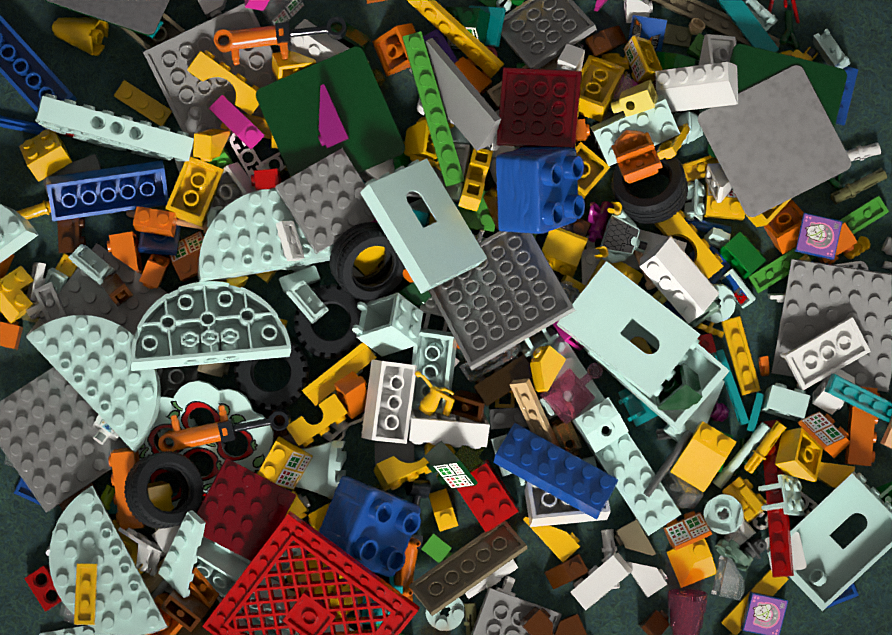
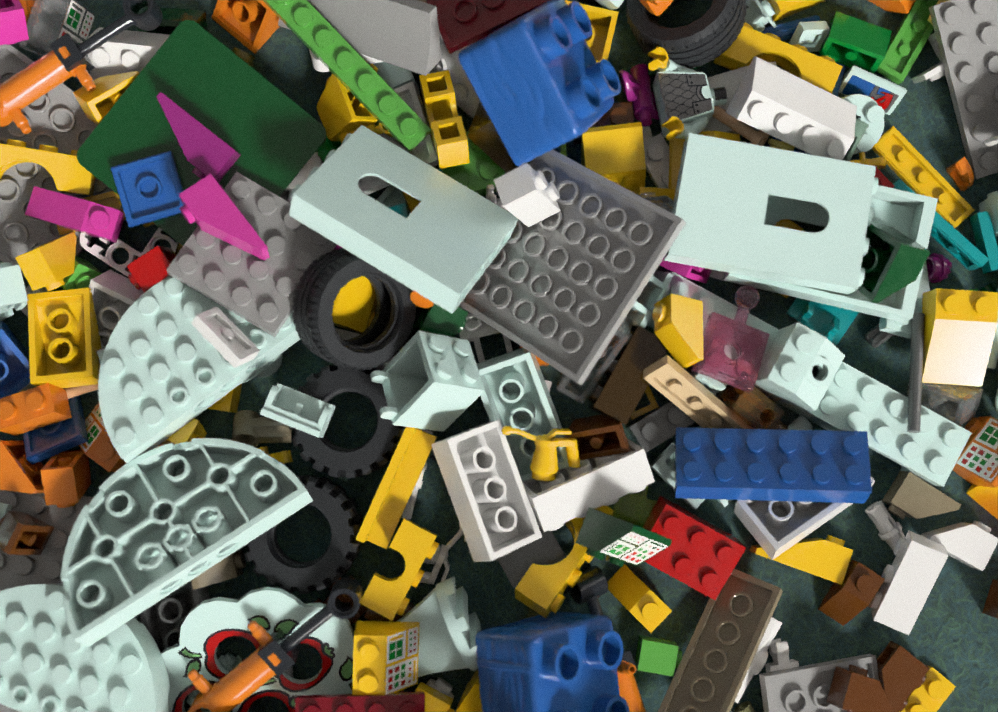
camera: 25 degrees left, 0 degrees up
(277, 300) = (253, 429): none -> dark tan piece
(288, 132) = (149, 188): none -> blue tile
(309, 275) = (285, 372): light aqua slope -> none
(320, 170) = (218, 216): none -> dark pink slope
(352, 393) = (428, 505): orange brick -> none
(498, 248) = (527, 194): none -> white brick

